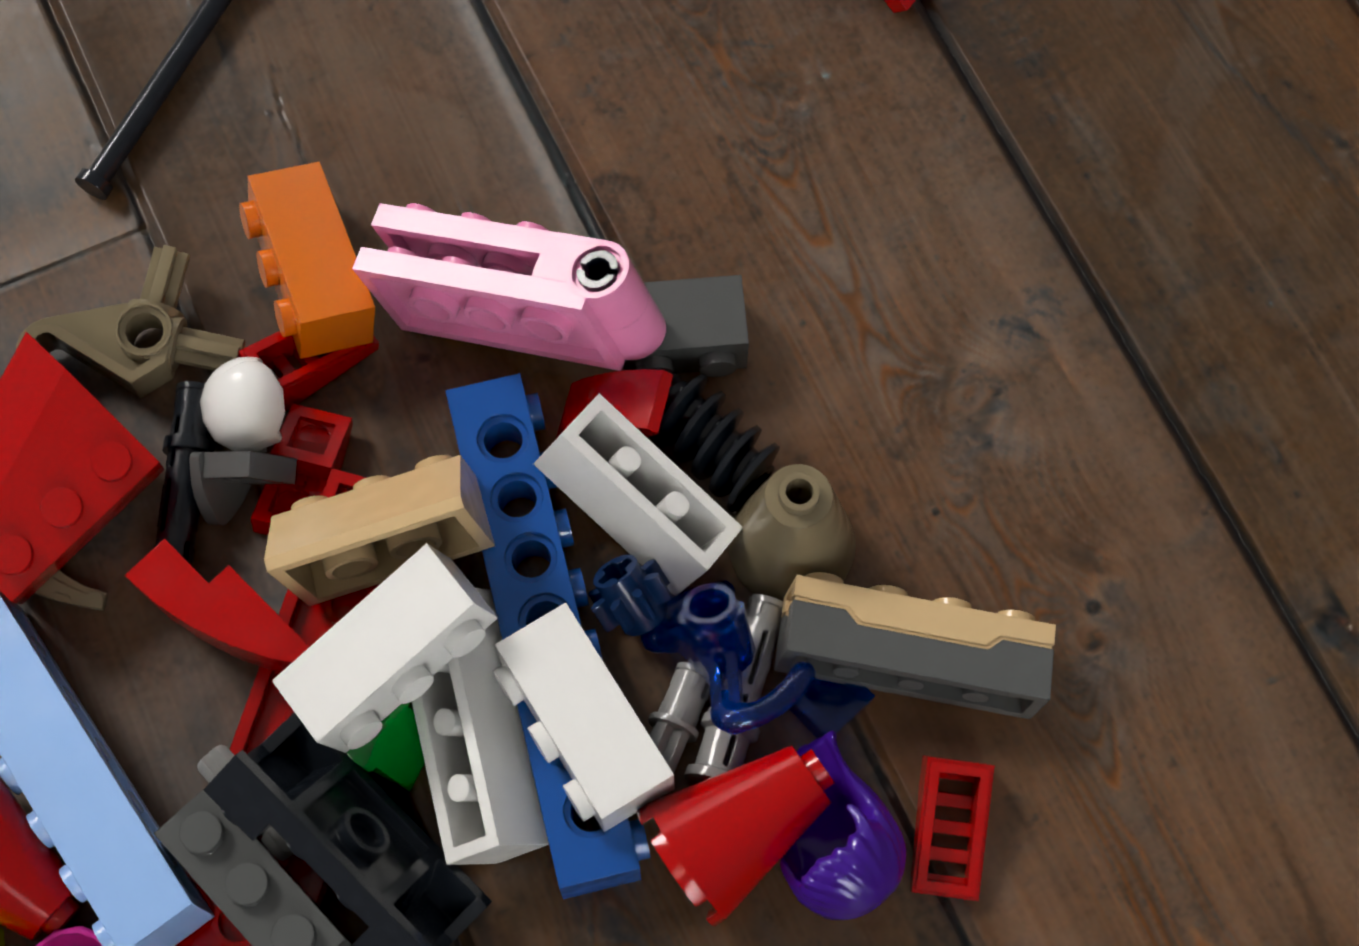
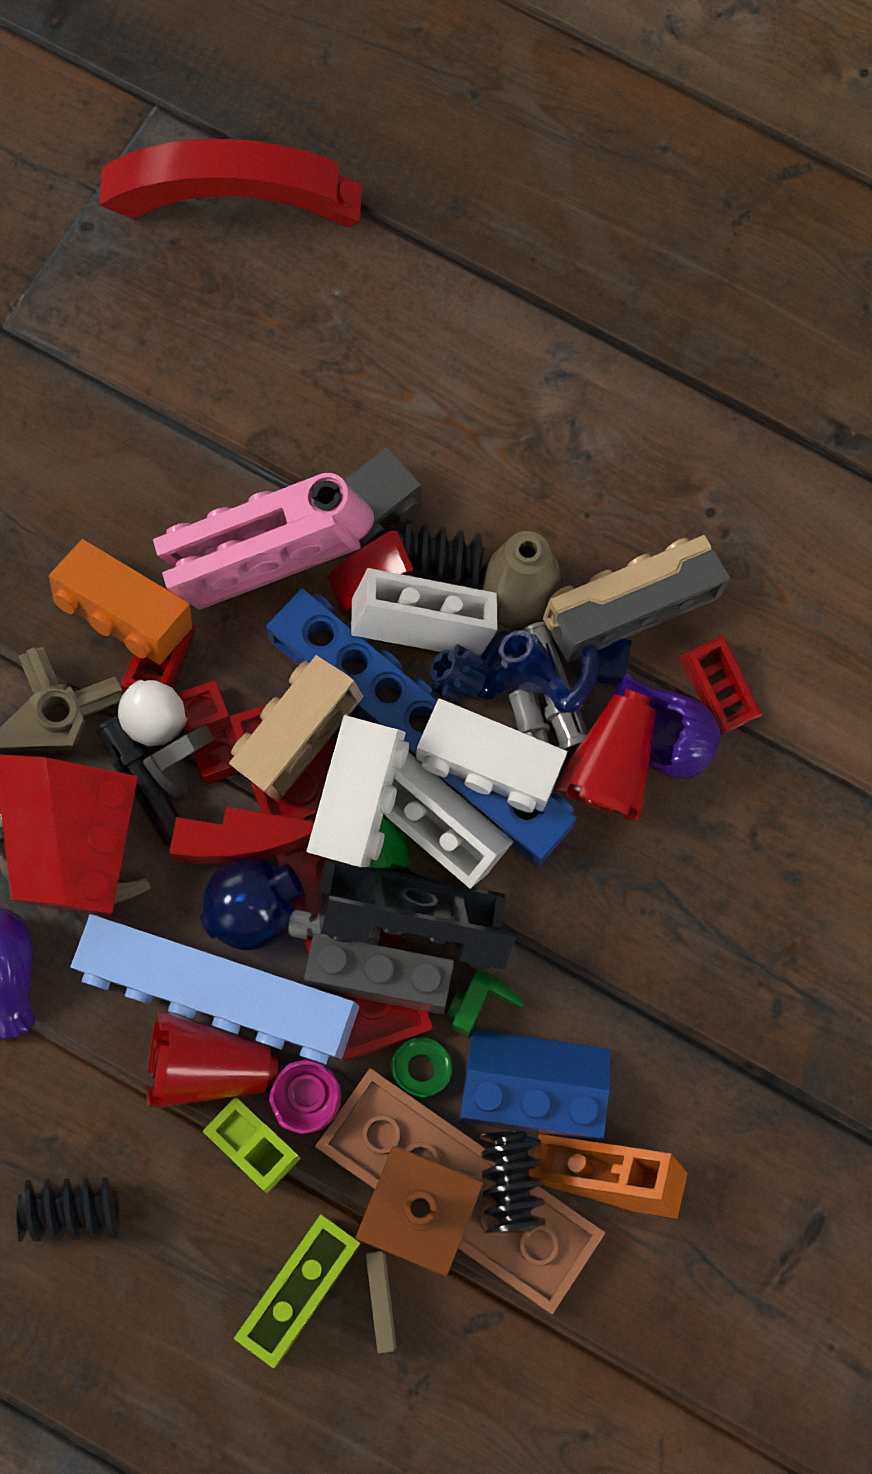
camera: 40 degrees left, 5 degrees up
(184, 701) = (250, 903): none -> clear blue brick

